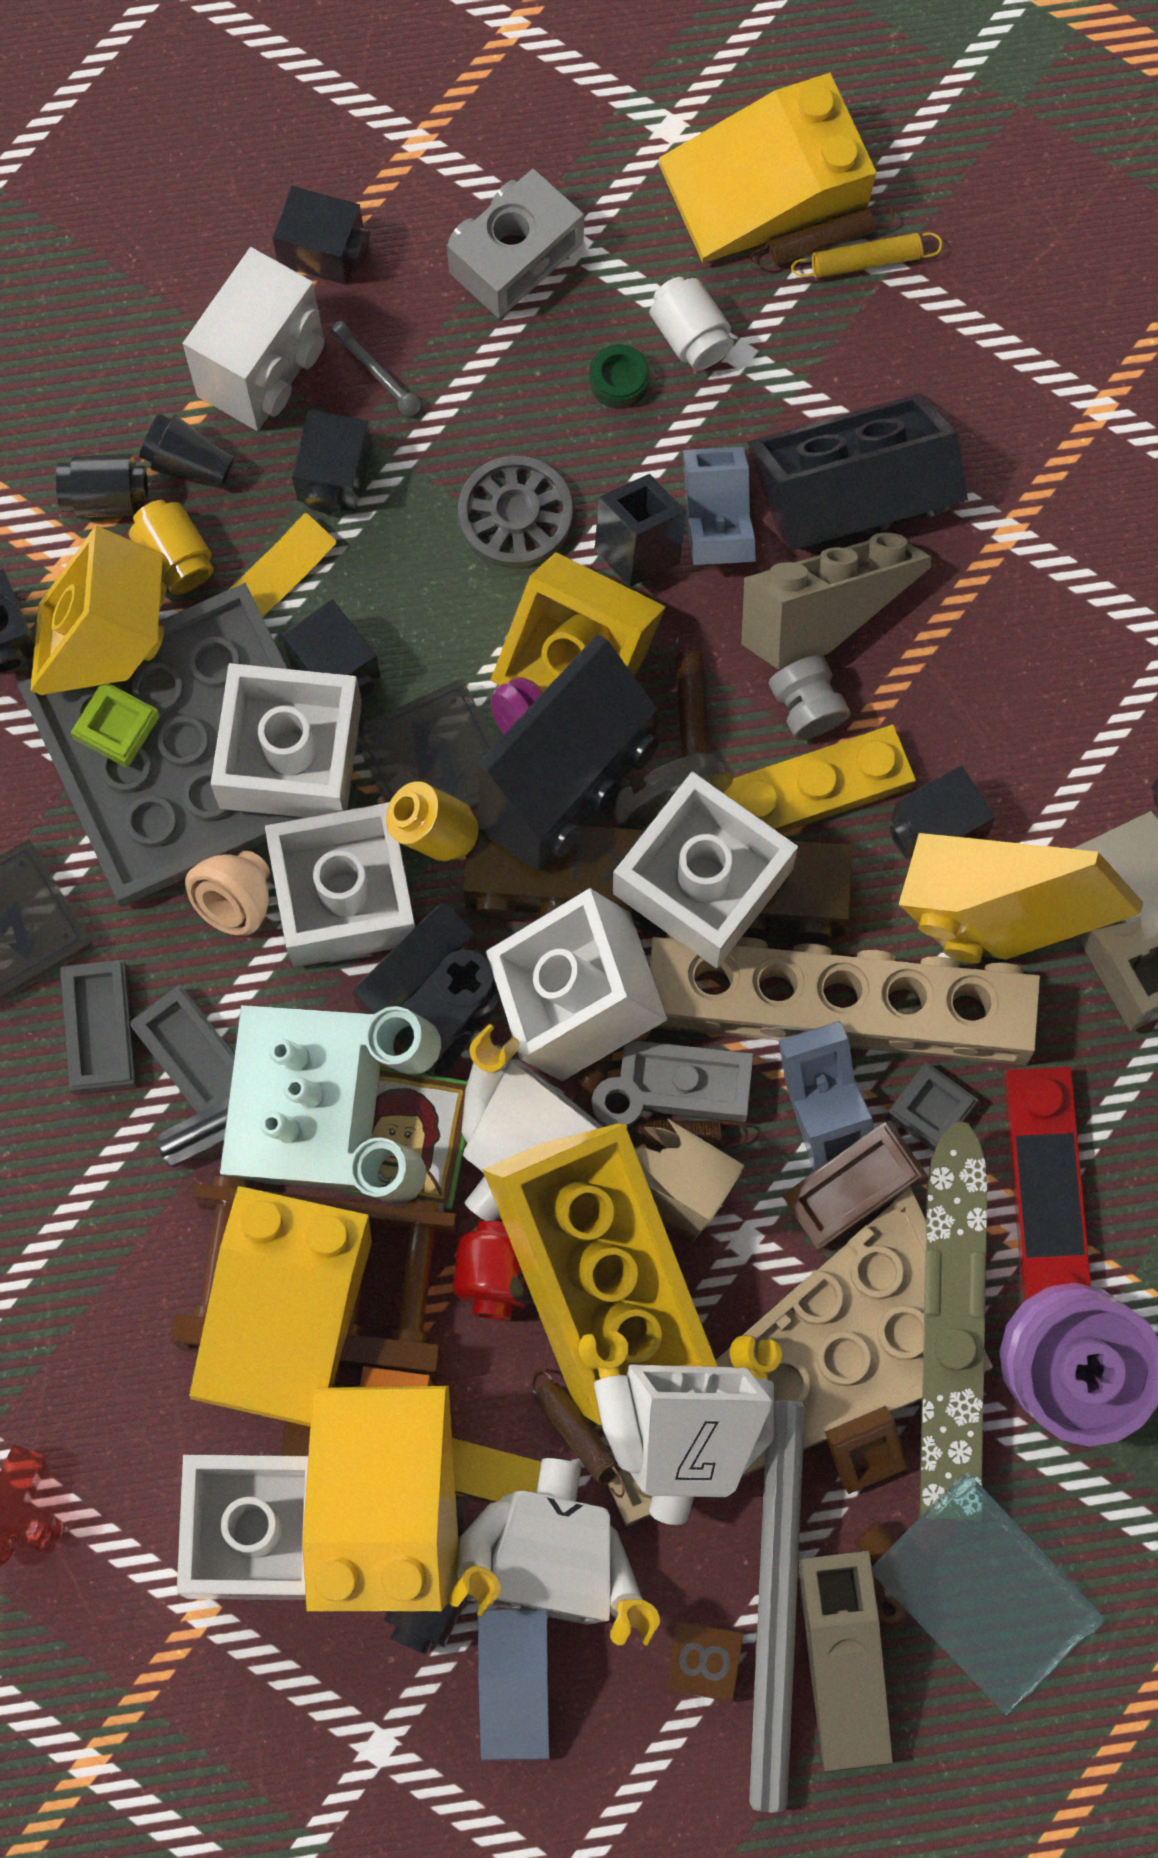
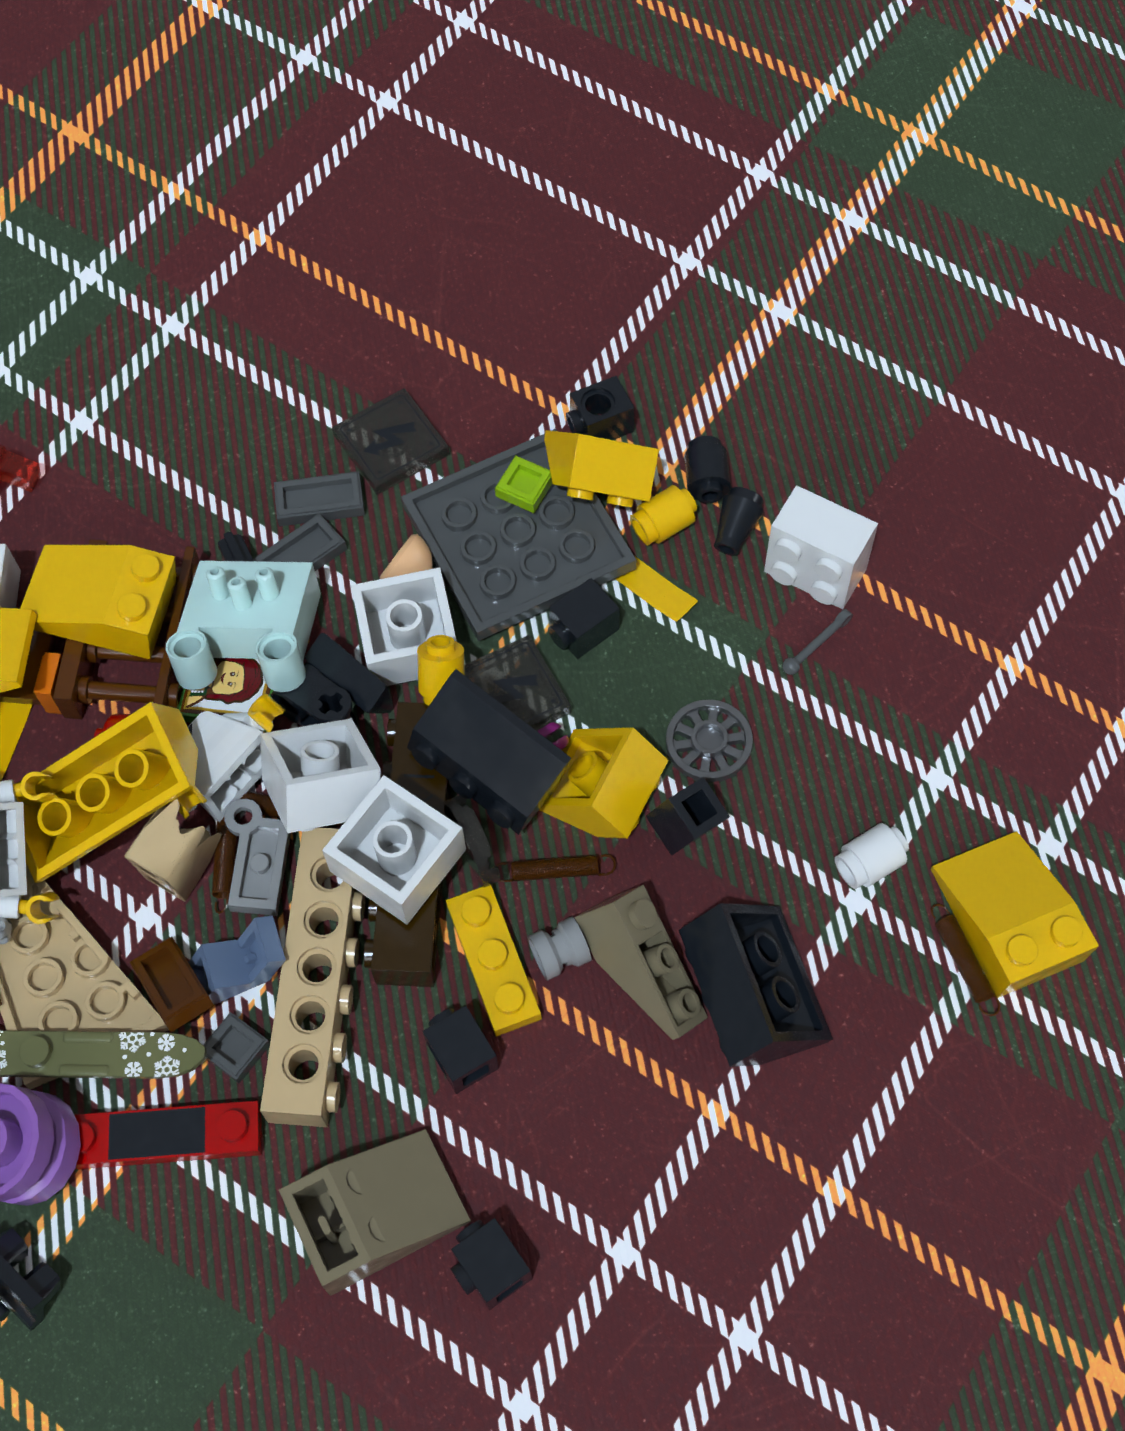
camera: 90 degrees right, 10 degrees down
(286, 741) = (501, 577): white brick -> none
(320, 235) = (917, 594): black brick -> none
(331, 462) = (733, 611): black brick -> none
(506, 273) = (933, 750): light grey brick -> none
(619, 376) = (826, 810): dark green tile -> none
(718, 506) = (729, 879): sand blue slope -> none
(867, 255) = (951, 995): yellow piece -> none
(1009, 896) = (379, 1075): yellow slope -> none

